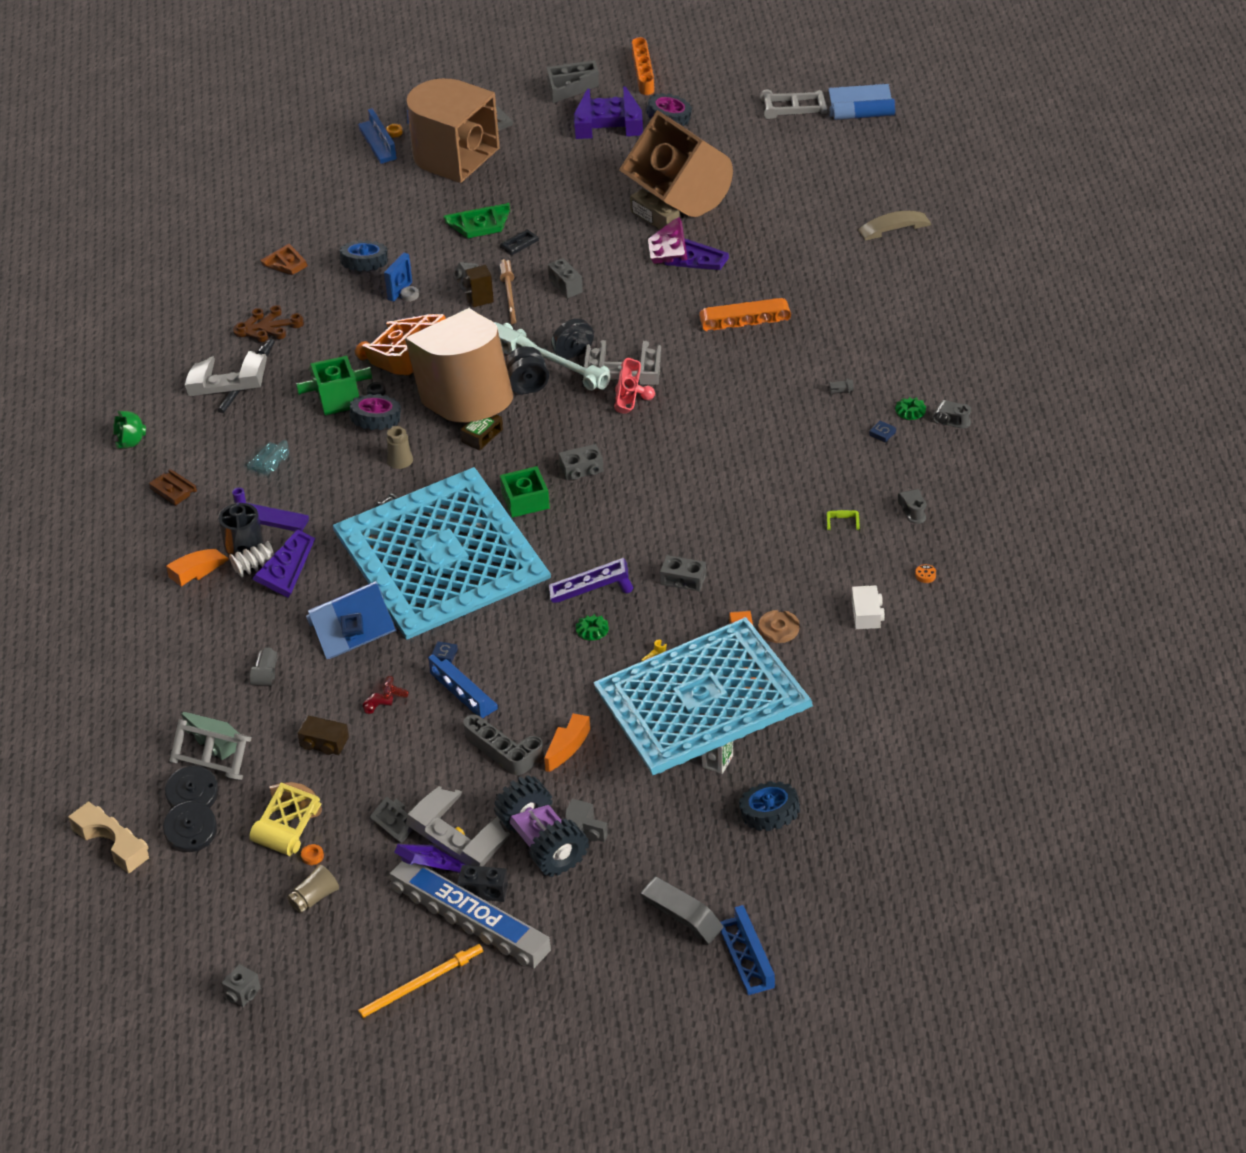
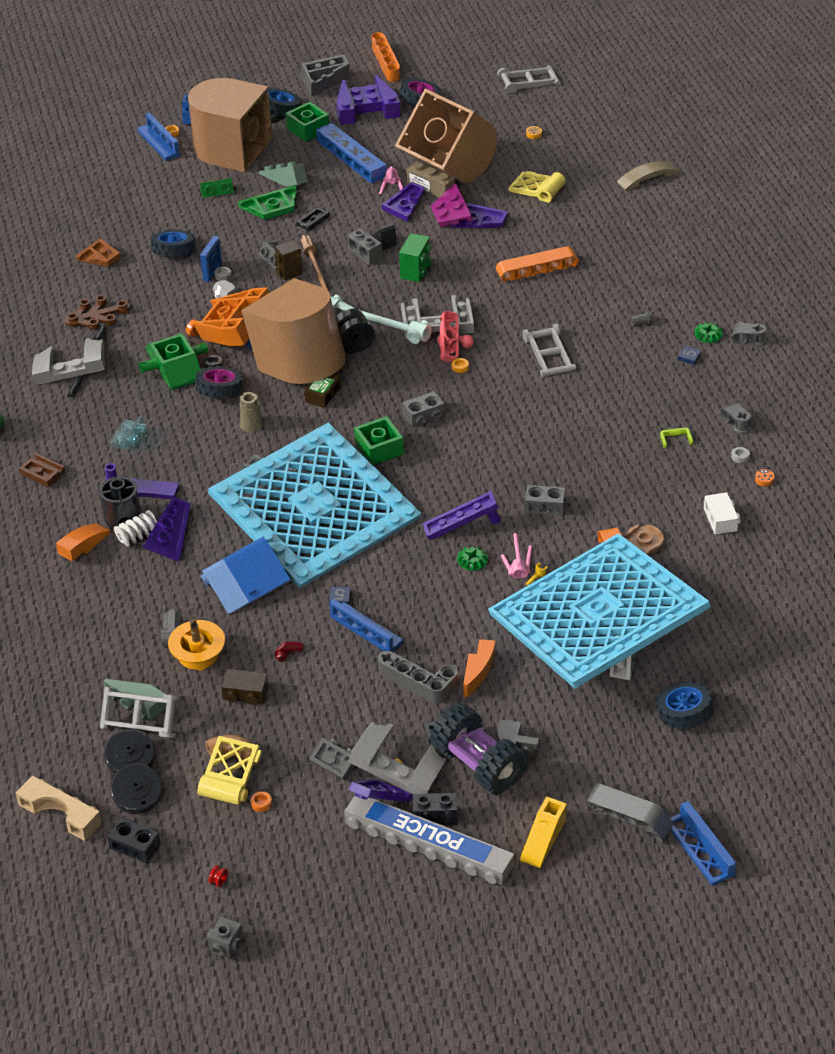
camera: 10 degrees left, 0 degrees up
(175, 878) = (134, 840): none -> black brick
(249, 924) = (218, 875): none -> red bush
(283, 685) = (196, 644): none -> light orange piece
(313, 889) = (272, 834): dark tan plant -> none
(352, 625) = (248, 579): dark blue tile -> none
(389, 688) = (298, 636): clear red piece -> none
(405, 310) = (223, 288): none -> light grey rock
(425, 198) = (216, 187): none -> green hinge
(460, 958) = (429, 885): light orange bar -> none
(502, 190) = (287, 175): none -> sand green slope
(516, 107) = (282, 101): none -> black wheel
(539, 132) = (305, 120): none -> green brick
(572, 338) = (387, 298): black wheel -> none
(578, 172) = (351, 153): none -> blue brick
(589, 917) = (544, 831): none -> yellow slope
(590, 270) = (386, 236): none -> black slope
(613, 295) = (415, 257): none -> green brick
(614, 203) = (391, 177): none -> bright pink plant
(622, 231) = (404, 201): none -> dark purple wing
(634, 418) = (460, 365): none -> light orange tile
(637, 643) = (519, 568): none -> bright pink plant
(744, 392) = (555, 332): none -> light grey piece
(777, 231) = (545, 189): none -> light yellow piece
(782, 165) = (534, 132): none -> light orange tile
(861, 102) = (589, 72): medium blue door -> none
(907, 546) = (740, 454): none -> light grey tile

